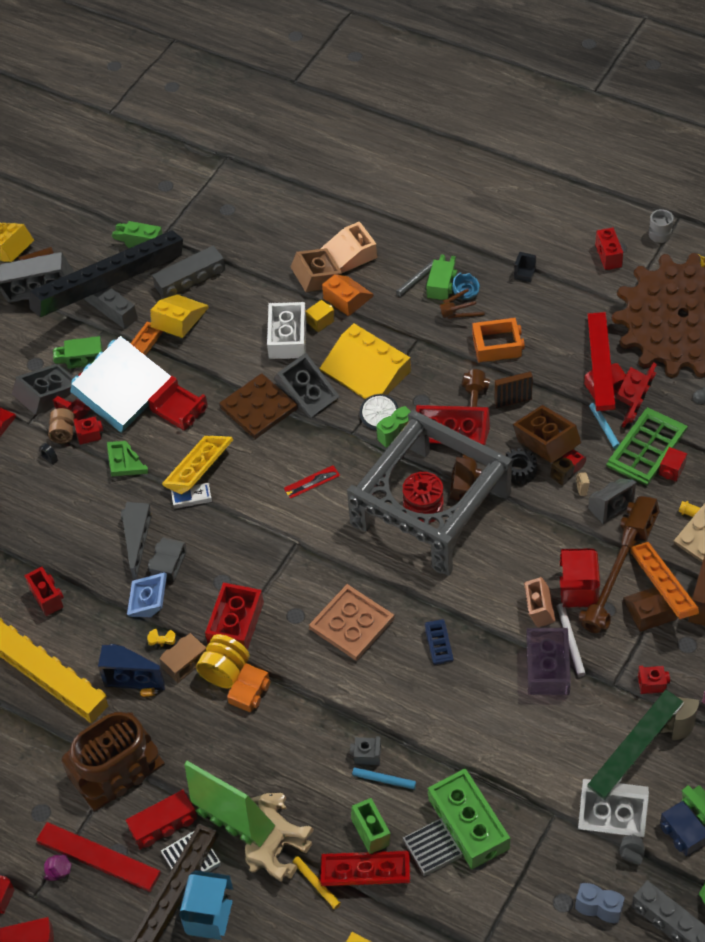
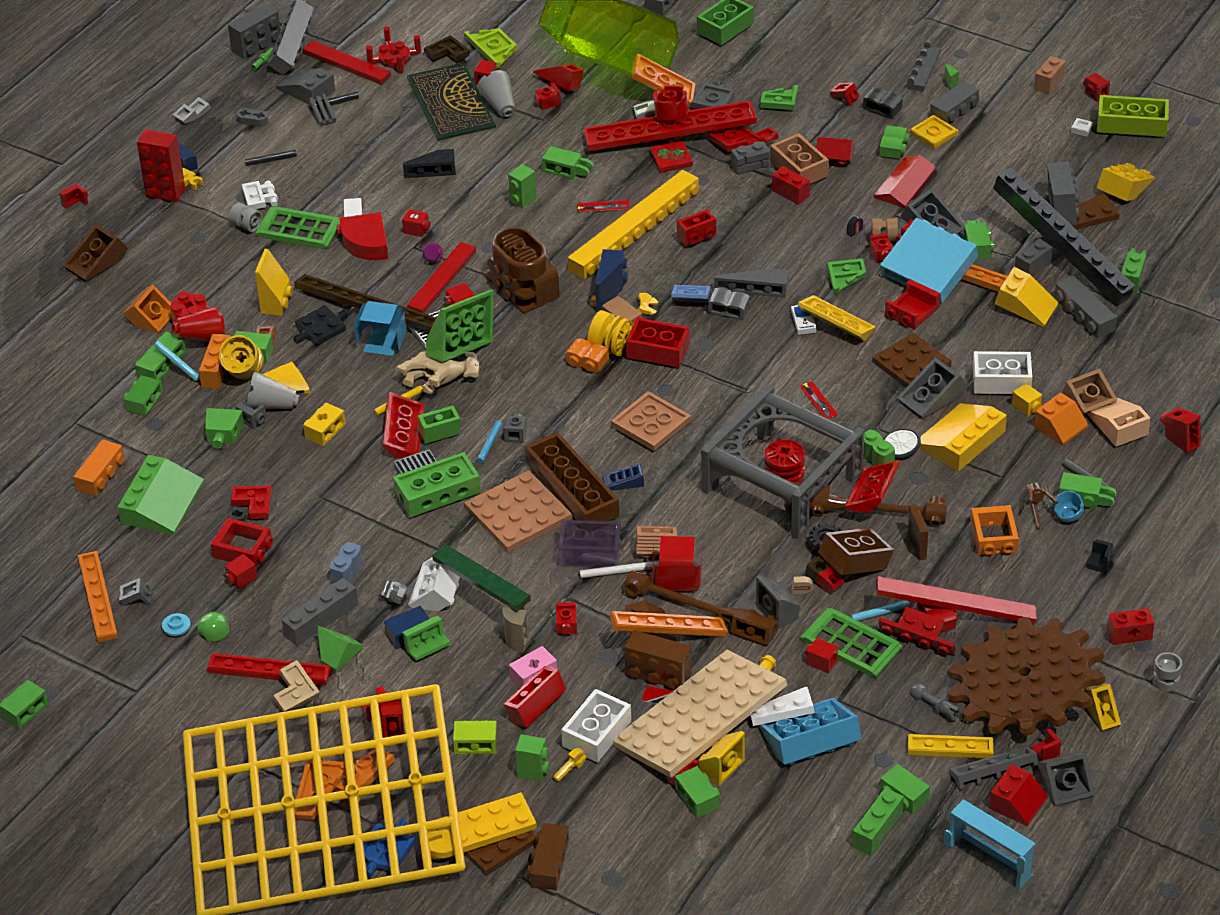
camera: 90 degrees right, 10 degrees down
(362, 206) = (1182, 429): none -> red torso
(455, 685) = (571, 479): none -> reddish brown brick
(492, 740) = (518, 511): none -> nougat plate

